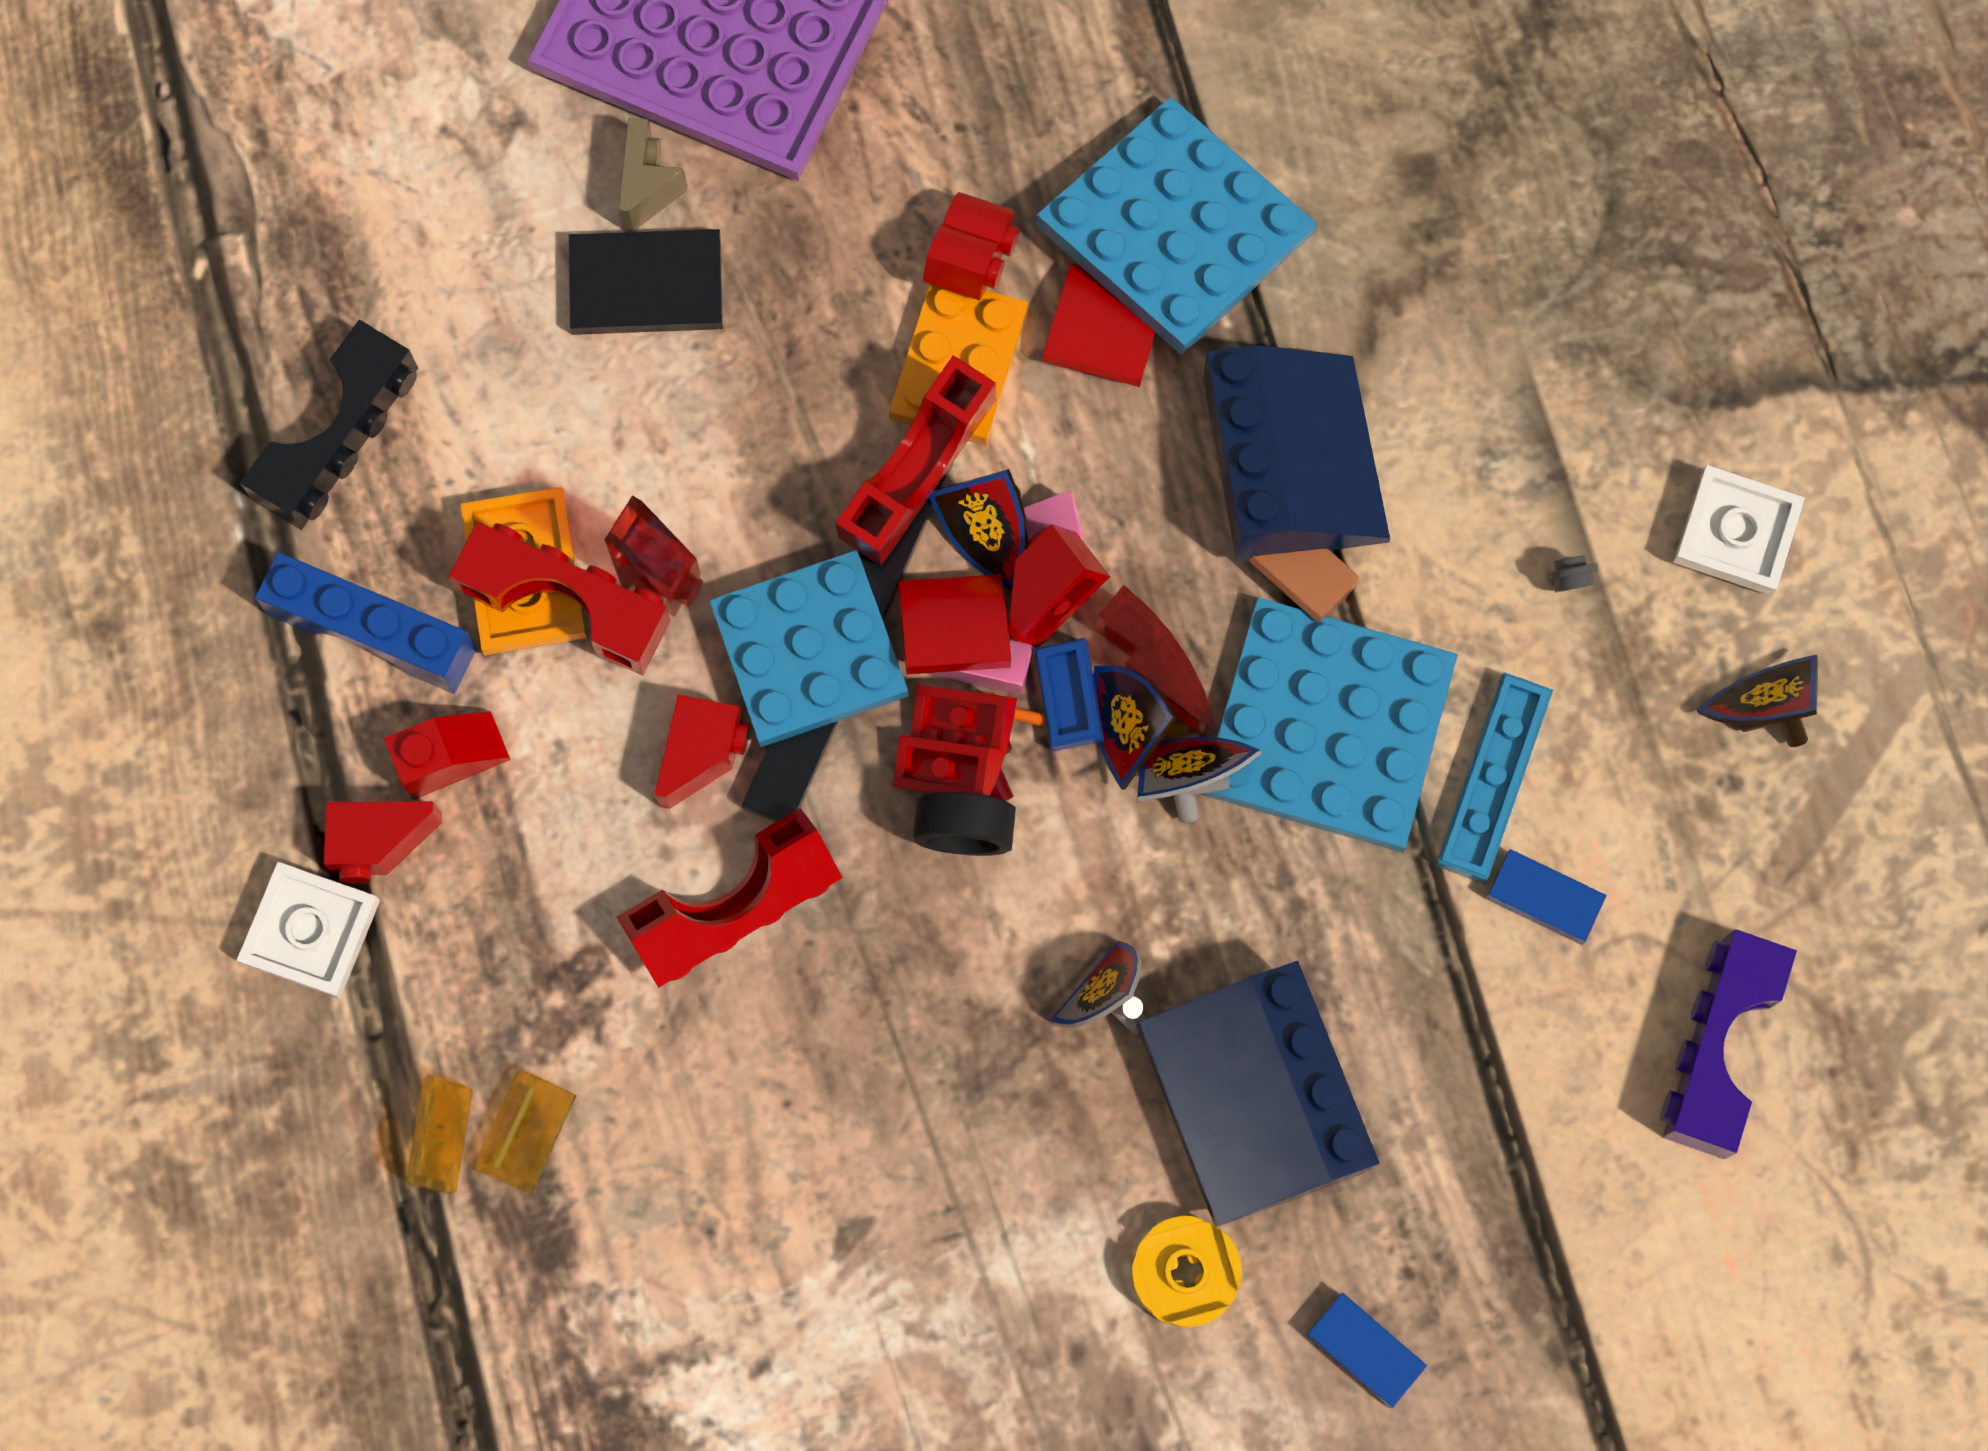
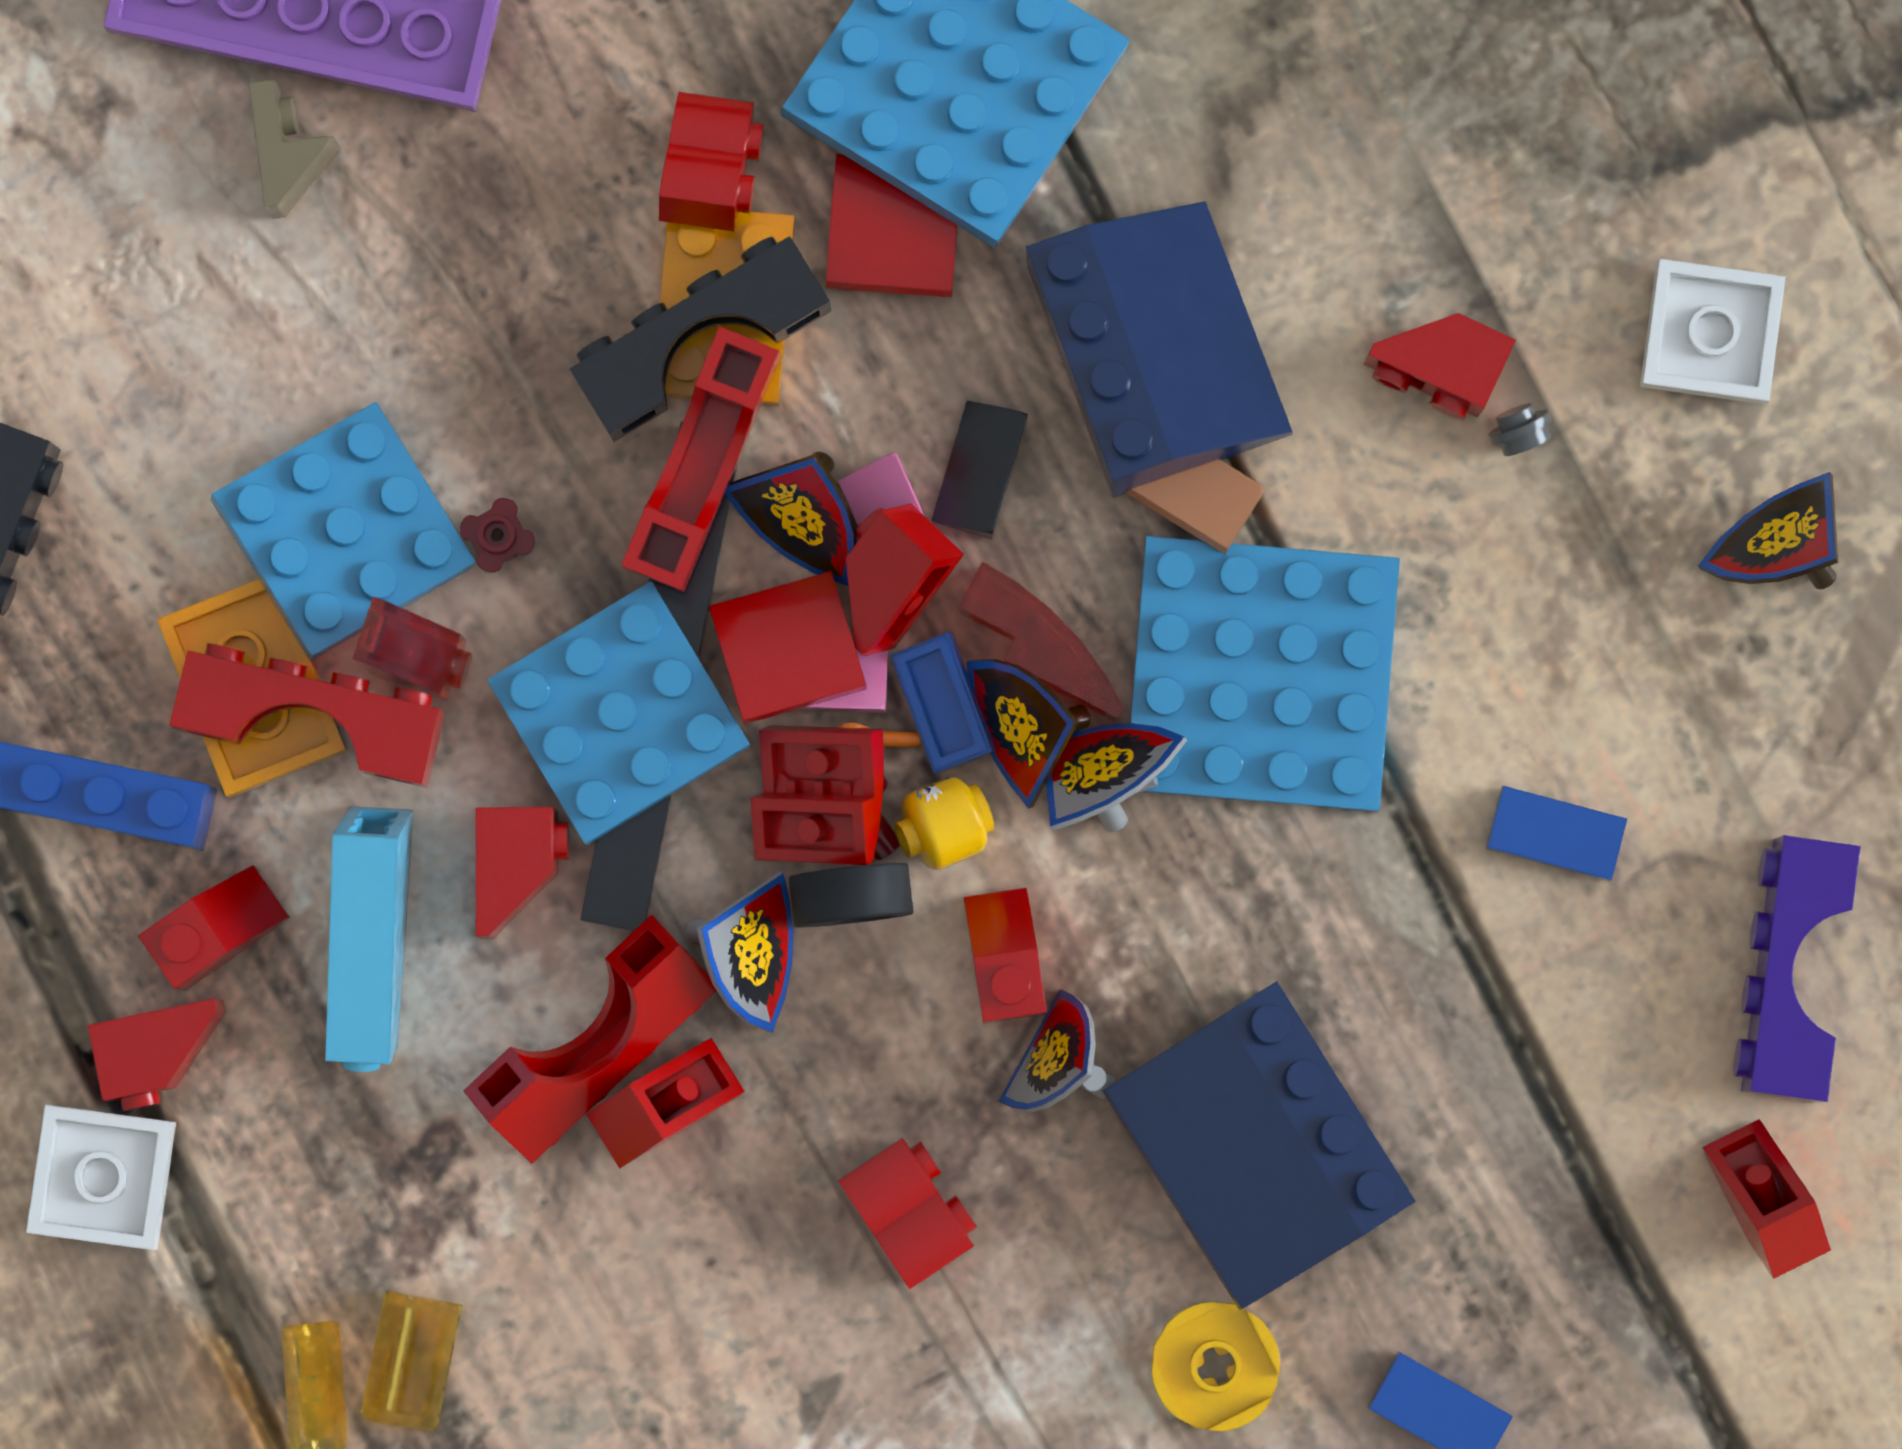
camera: 10 degrees left, 10 degrees up
(567, 781) = (367, 935): none -> medium azure slope
(620, 447) = (342, 526): none -> dark azure plate
(645, 281) = (316, 283): black tile -> none
(748, 509) = (514, 541): none -> dark red plate
(777, 962) = (664, 1102): none -> red slope
(873, 855) = (750, 952): none -> shield
(874, 385) = (766, 293): none -> black arch
(957, 1091) = (908, 1212): none -> red brick
(1051, 786) = (944, 823): none -> yellow head
(1079, 905) = (1005, 955): none -> red slope
(1136, 521) = (979, 468): none -> black slope
(1494, 778) = (1470, 699): dark azure tile -> none
(1521, 508) = (1447, 359): none -> red slope
(1673, 1227) = (1768, 1199): none -> red slope

